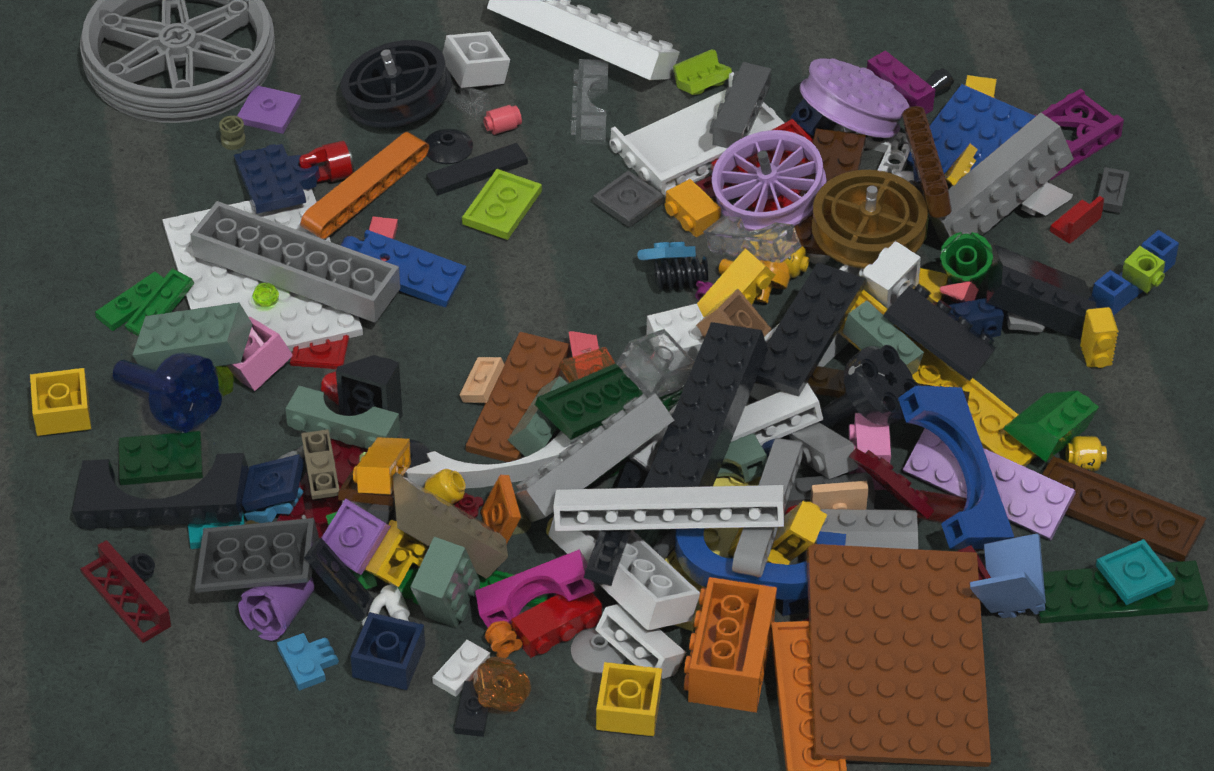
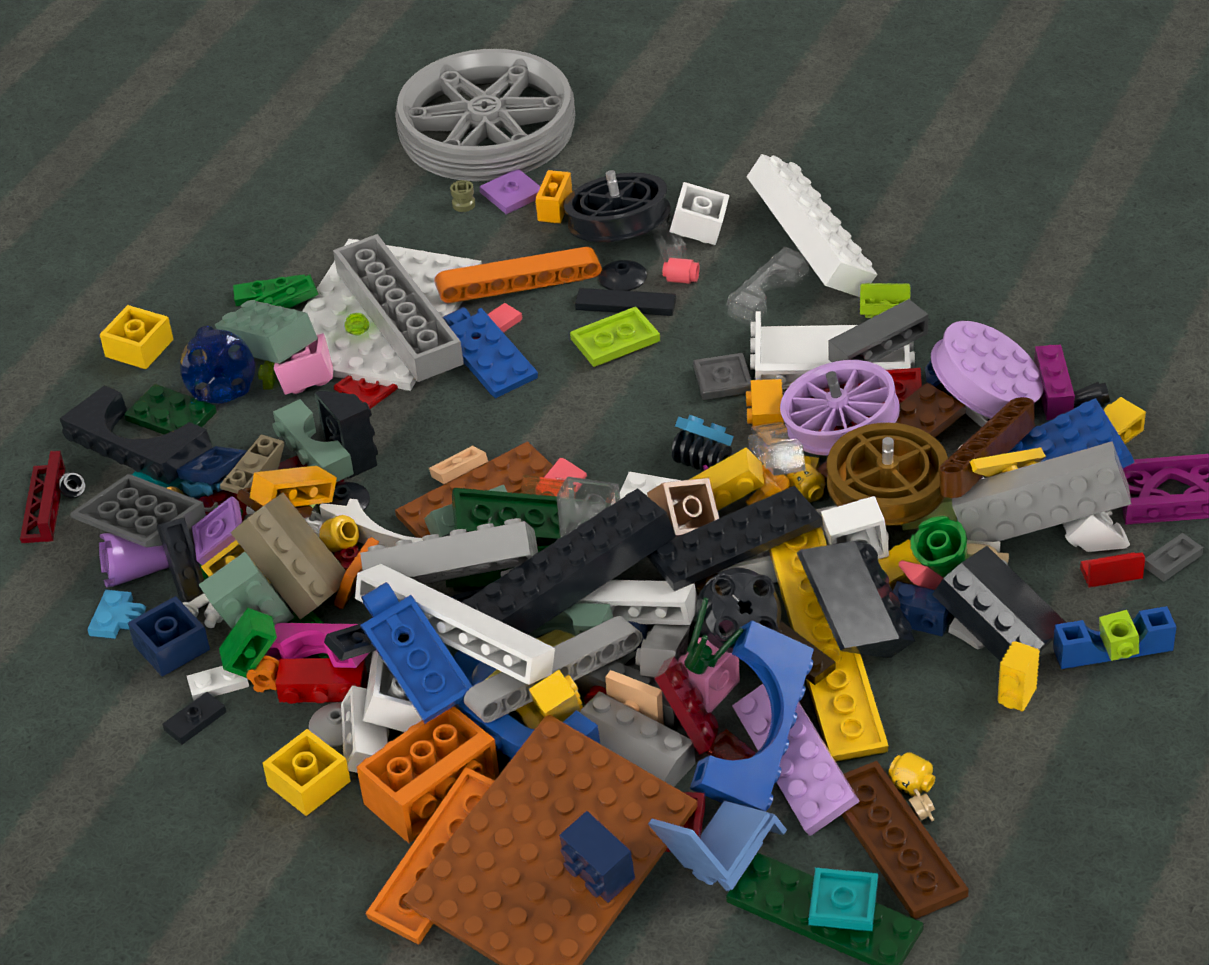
camera: 40 degrees right, 5 degrees down
(279, 179) = (471, 238): dark blue plate -> none
(324, 97) = (552, 195): none -> light orange brick
(478, 618) = (247, 642): none -> green brick
(492, 694) = (221, 722): clear orange plate -> none
(673, 551) = (420, 664): none -> blue hinge
(869, 327) = (790, 580): sand green brick -> none
(880, 436) = (700, 654): none -> dark green plant
(957, 633) = (596, 857): none -> dark blue brick
(1052, 422) = (899, 729): green slope -> none
(1115, 472) = (922, 806): none -> tan plate

